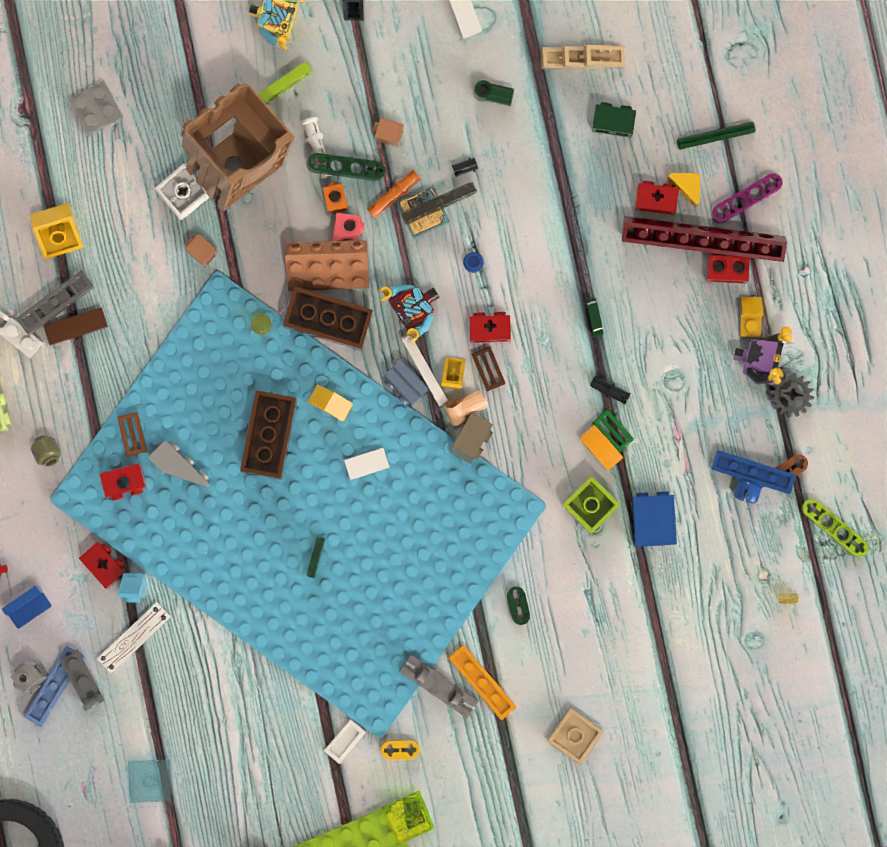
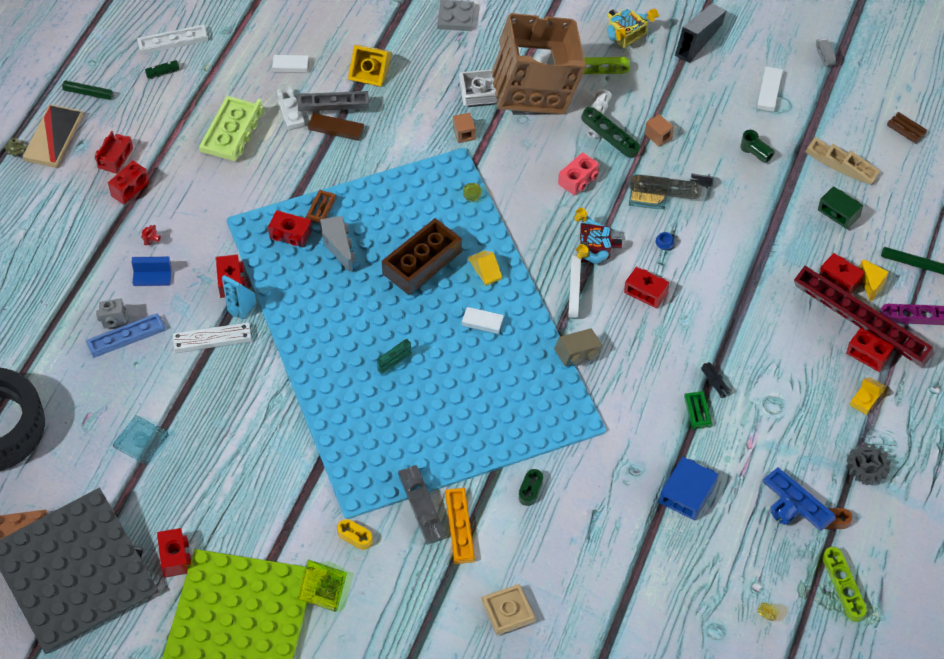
camera: 30 degrees right, 30 degrees down
(45, 451) = (250, 184): olive head -> none
(81, 679) = (149, 339): dark grey plate -> none
(327, 265) = (549, 180): nougat bracket -> none
(327, 318) = (525, 210): reddish brown brick -> none
(335, 207) = (589, 145): orange brick -> none
(344, 741) = (315, 502): white tile -> none
(401, 187) = (635, 168): orange pin -> none
(405, 383) = (553, 286): sand blue brick -> none
(453, 373) = (593, 302): yellow slope -> none
(460, 409) = (583, 322): light nougat piece -> none
(495, 385) = (623, 327): reddish brown tile -> none
(590, 505) = (643, 445): lime brick -> none
(594, 317) = (736, 324): dark green beam -> none
(600, 447) = (680, 413): light orange slope -> none
(764, 357) = (861, 423): torso -> none

